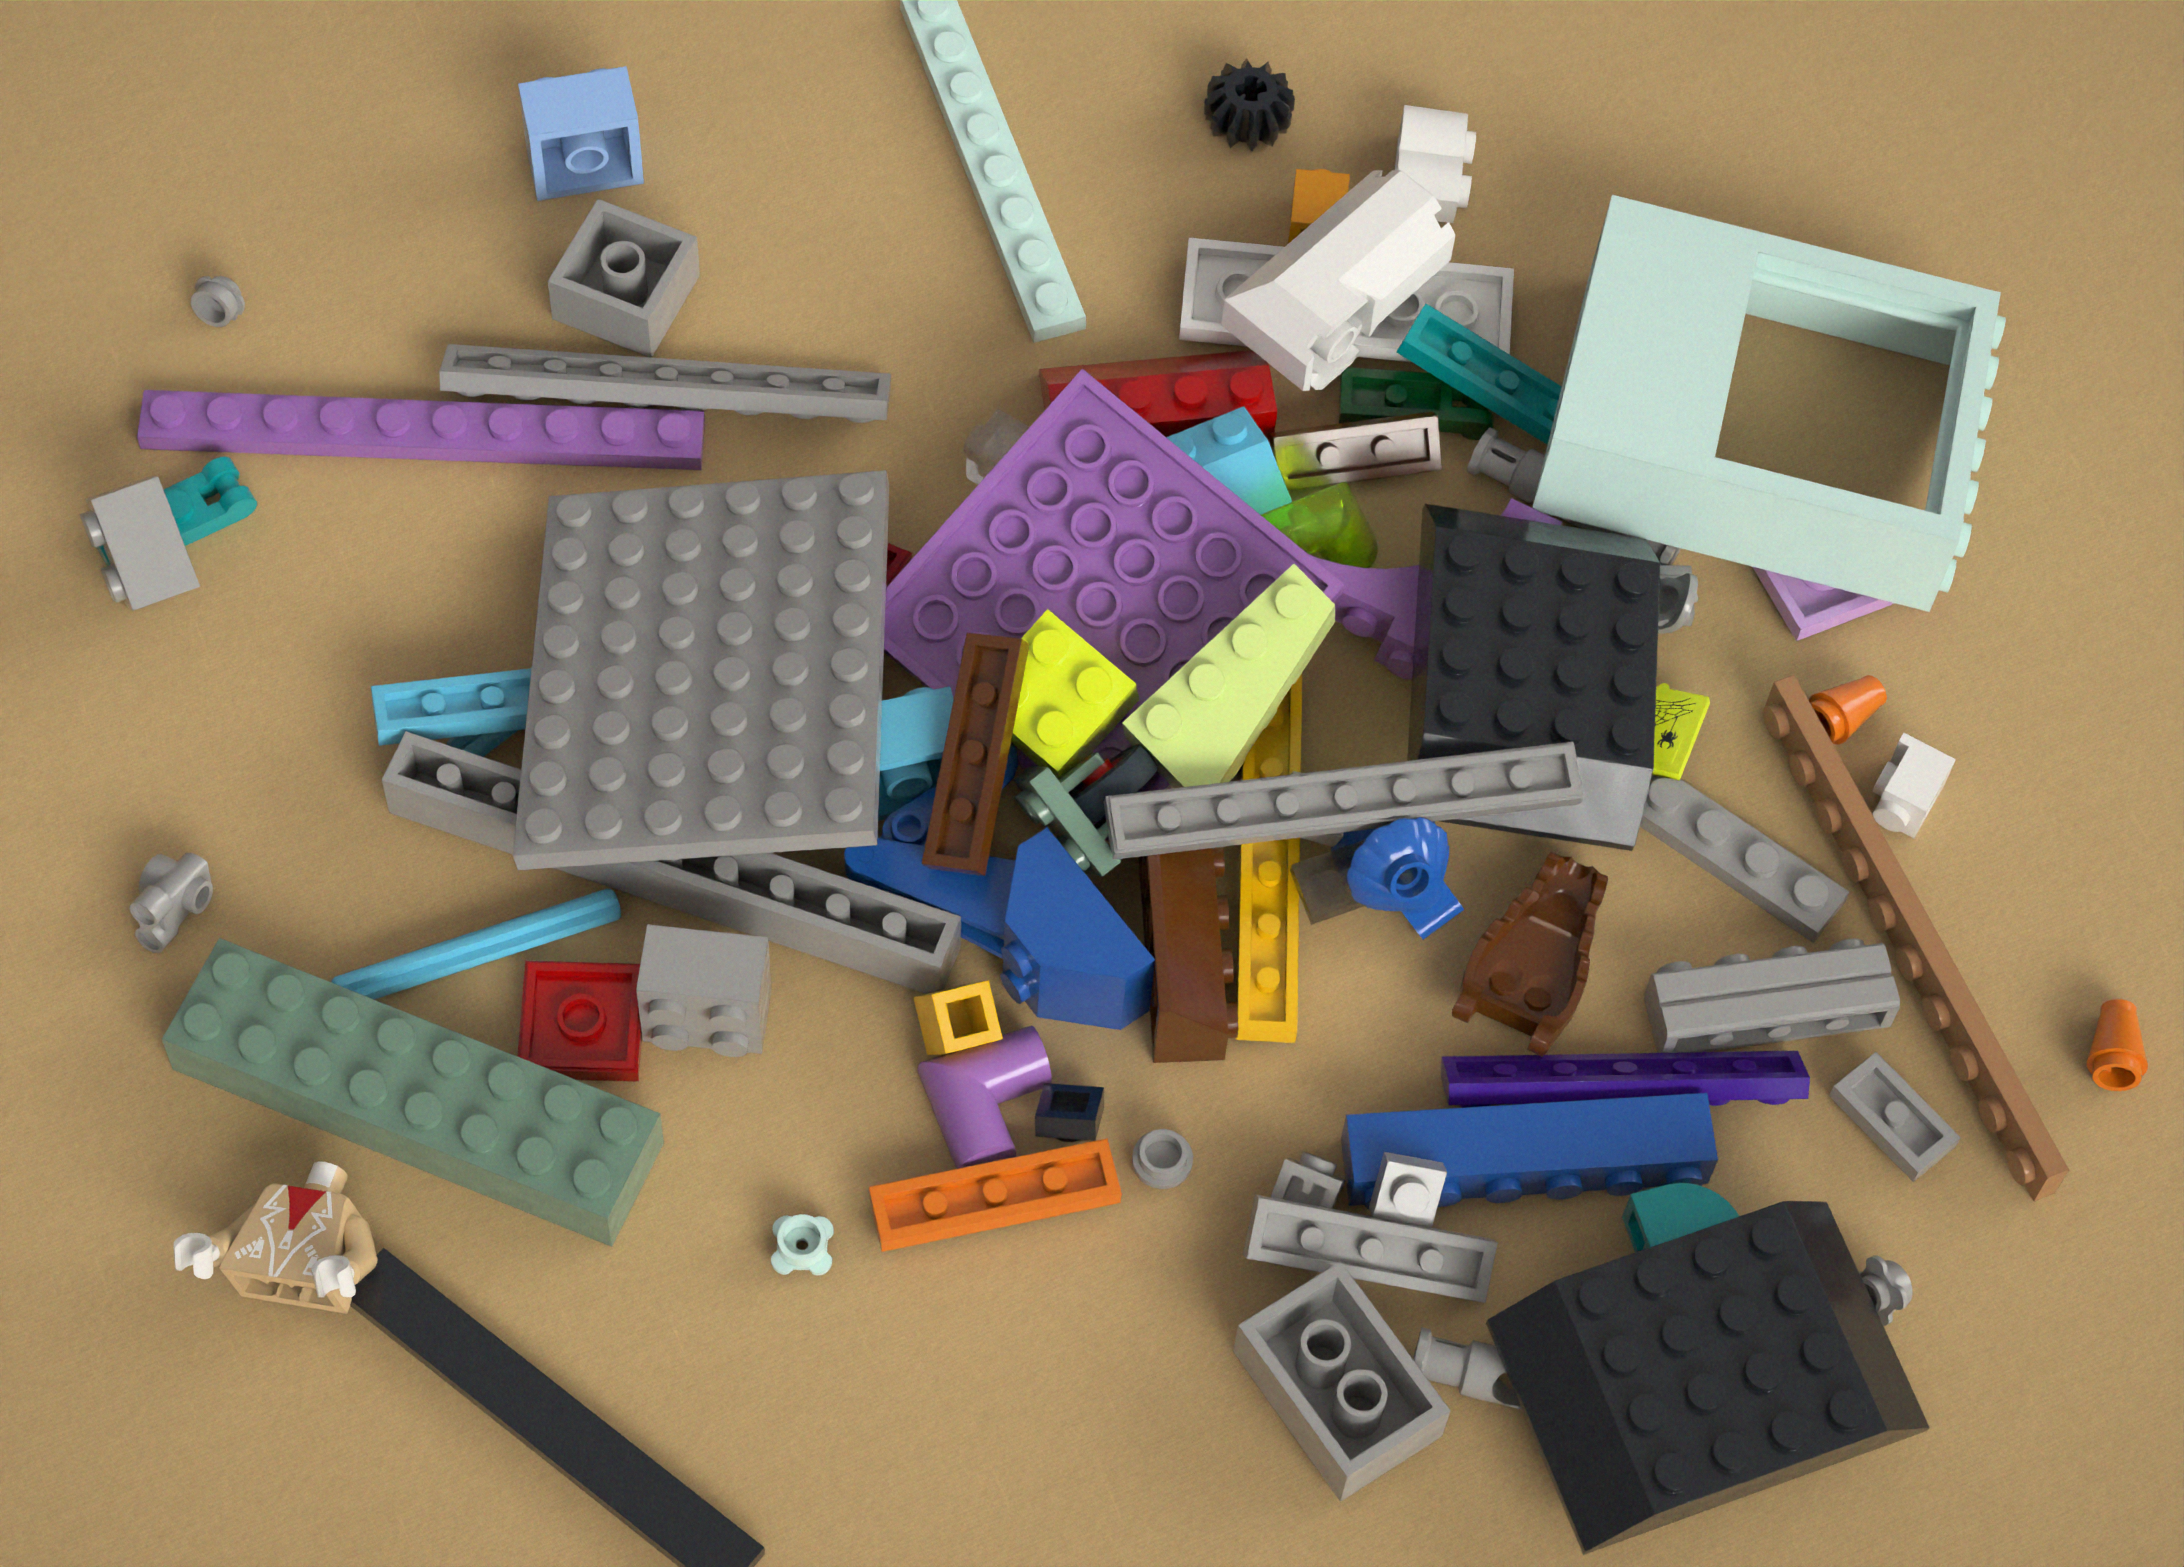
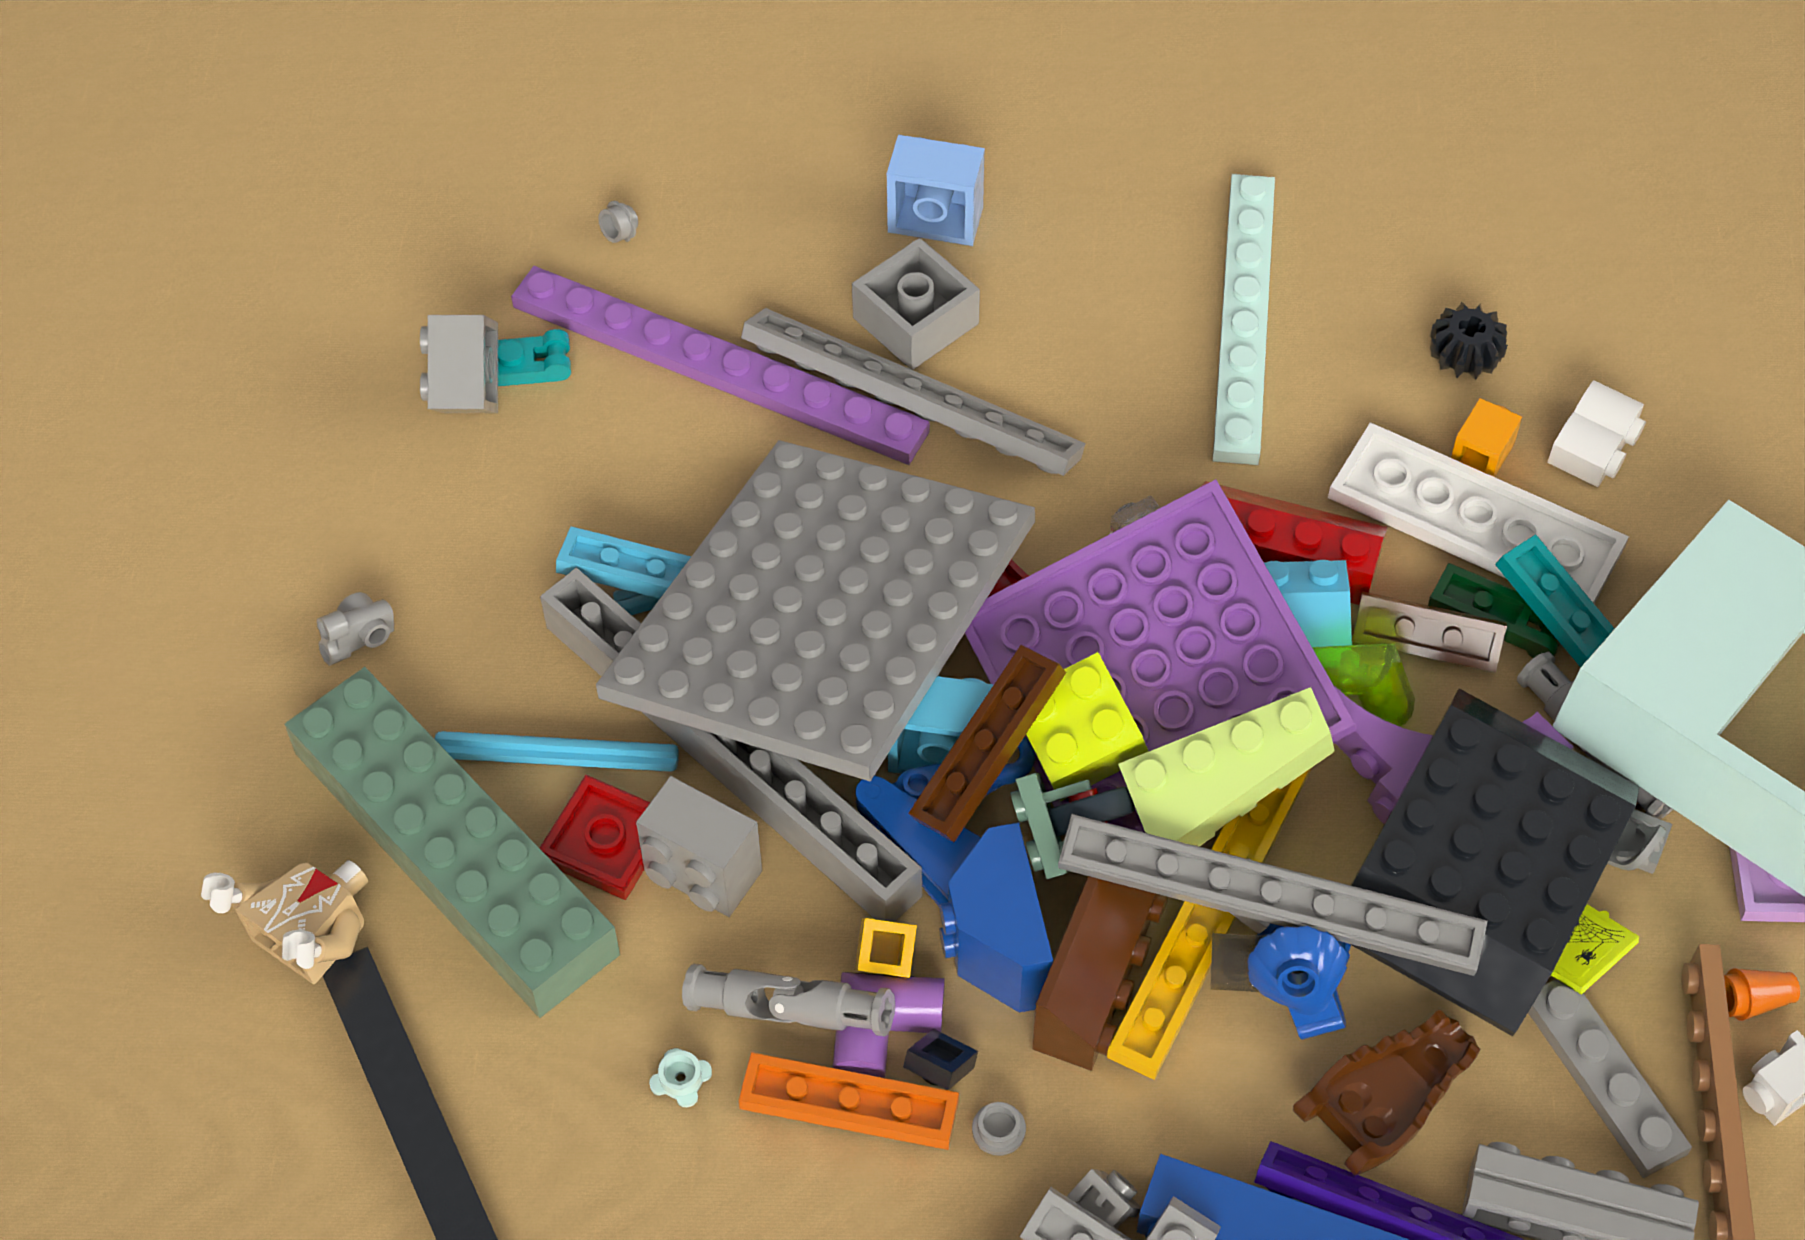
camera: 30 degrees right, 5 degrees down
(909, 1109) = (809, 1003): none -> light grey piece
(1340, 278) = (1470, 491): white brick -> none

